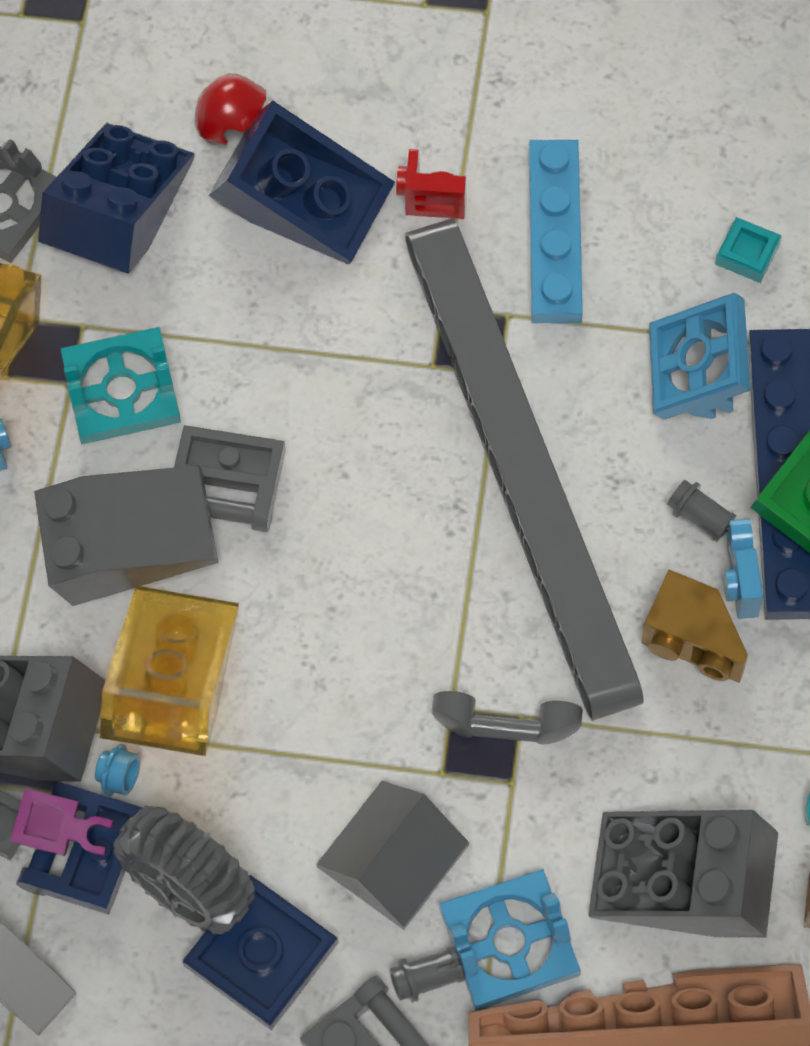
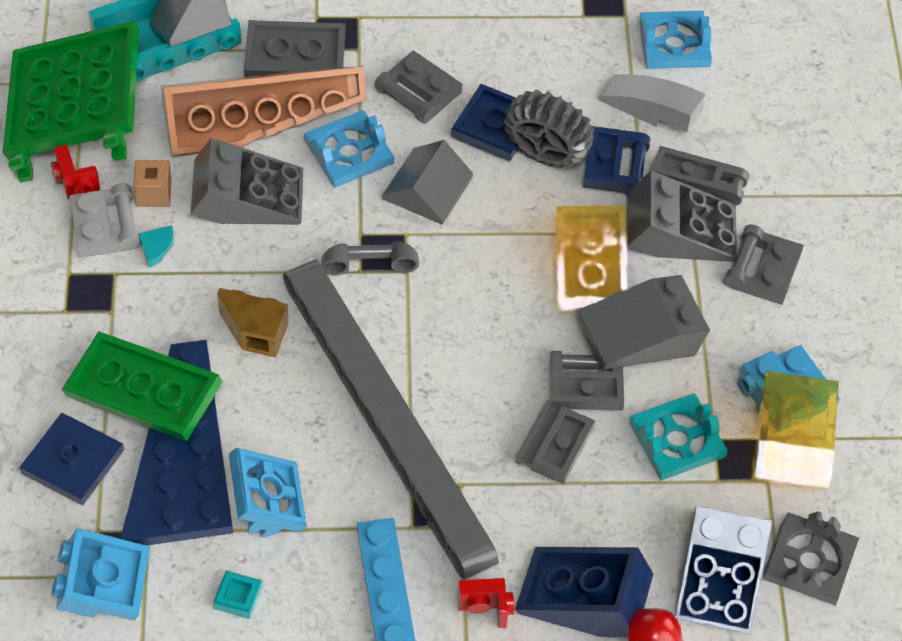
camera: 165 degrees right, 10 degrees down
(51, 823) = (635, 152): magenta plate -> none
(117, 770) = (608, 197): dark azure plate -> none
(291, 391) = (555, 441): none -> dark grey plate
(423, 974) = (398, 120): dark grey pin -> none
(700, 510) = (253, 397): dark grey pin -> none
(743, 580) = (224, 353): dark azure plate -> none

